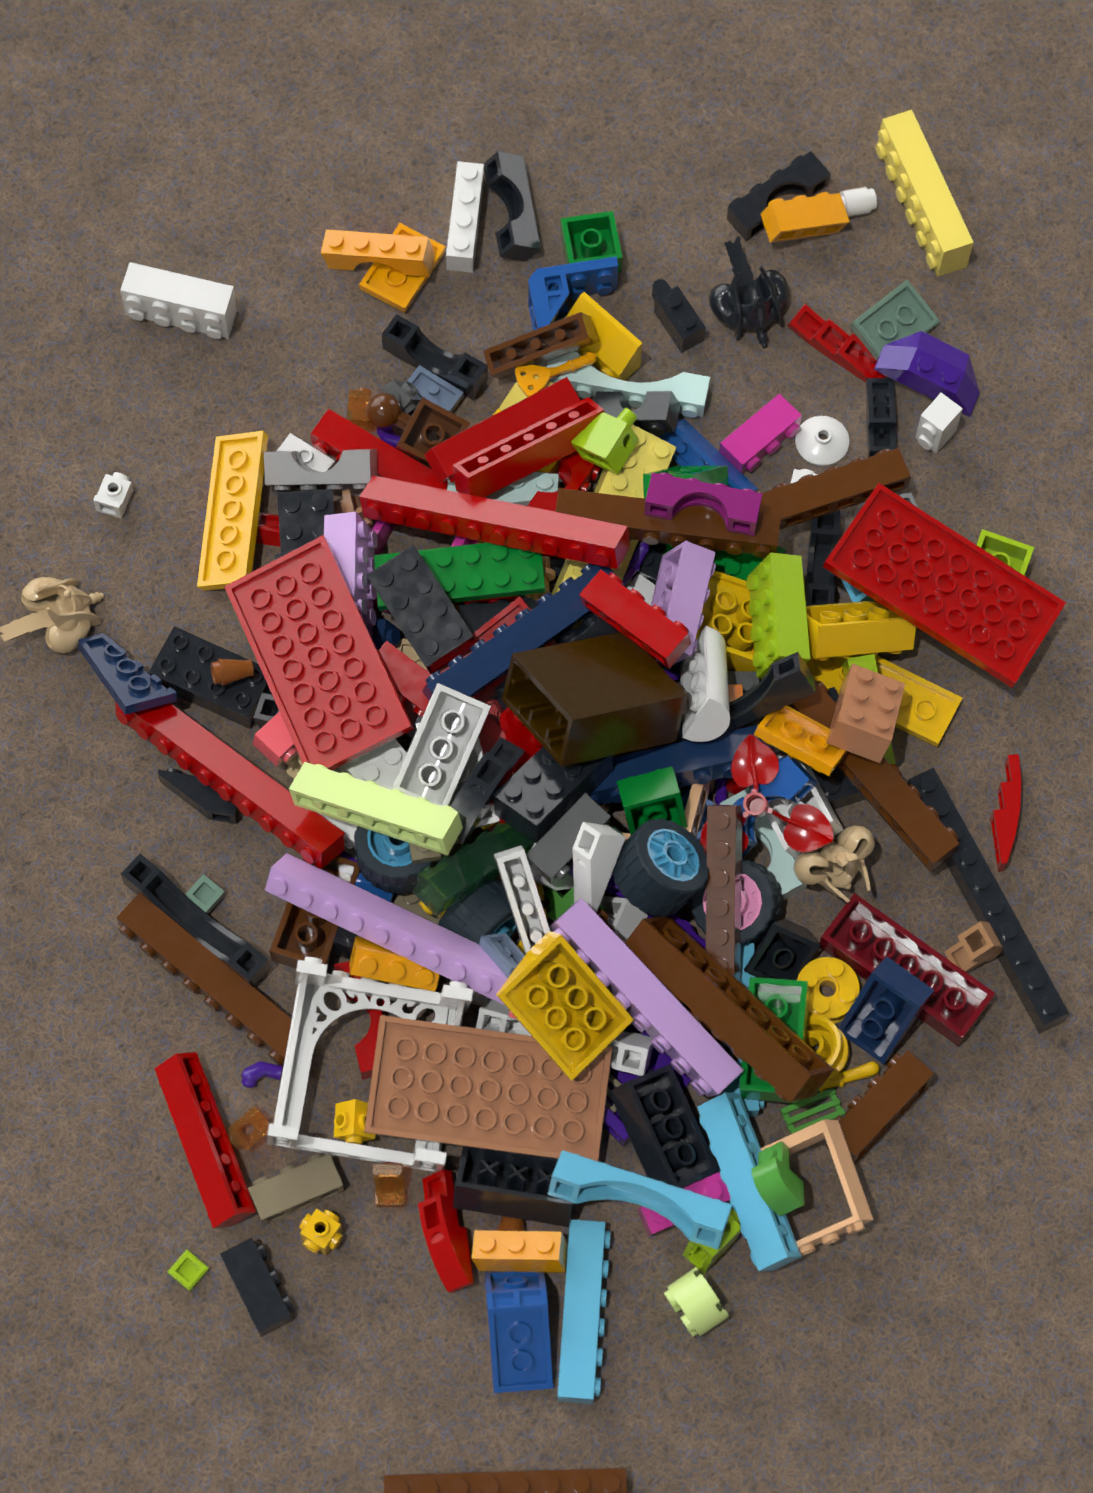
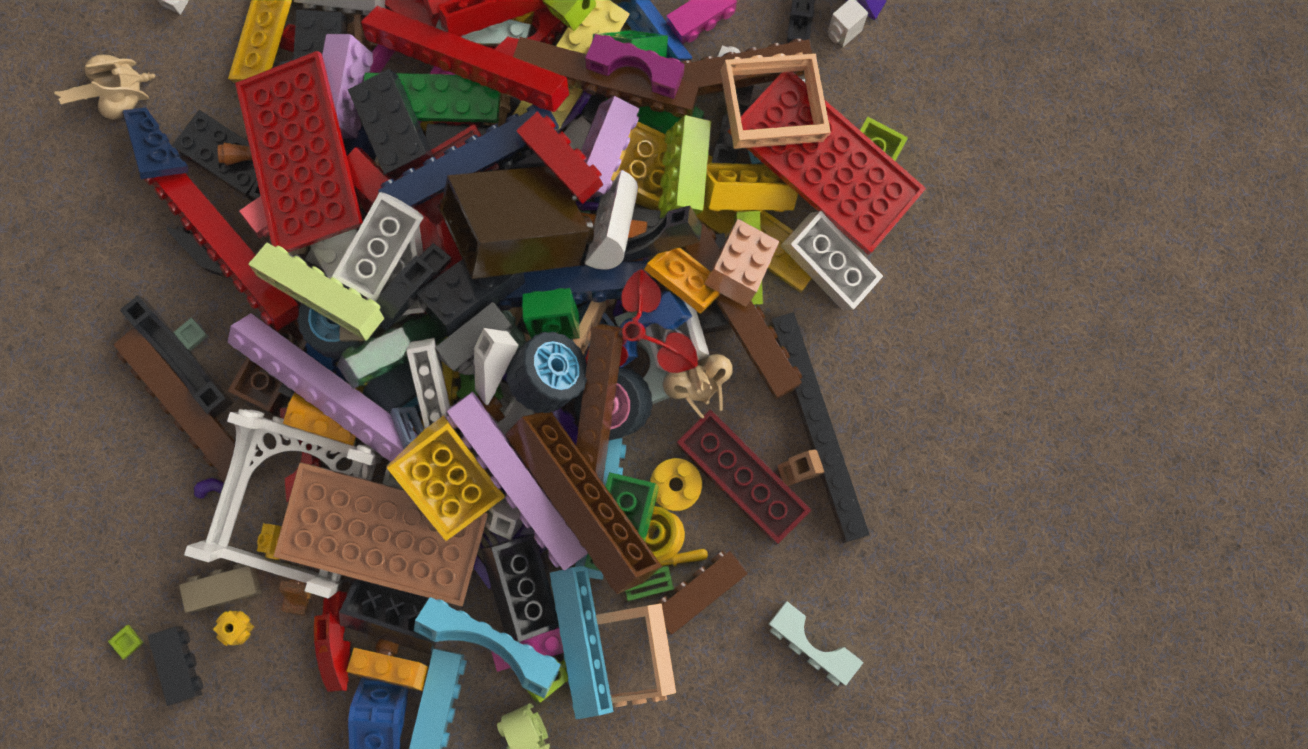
camera: 10 degrees right, 10 degrees up
(204, 1140) = (153, 538): red brick -> none
(260, 1128) = (198, 526): clear orange brick -> none
(775, 1181) = (599, 650): bright green brick -> none
(783, 952) = (644, 450): black slope -> none
(821, 451) = (749, 33): white dish -> none
(883, 562) = (783, 135): none -> light nougat window
(885, 1010) = (718, 512): dark blue brick -> none
(969, 702) = (832, 260): none -> white brick
(1005, 819) = (845, 363): red slope -> none
(1056, 1172) = (839, 663): none -> light aqua arch

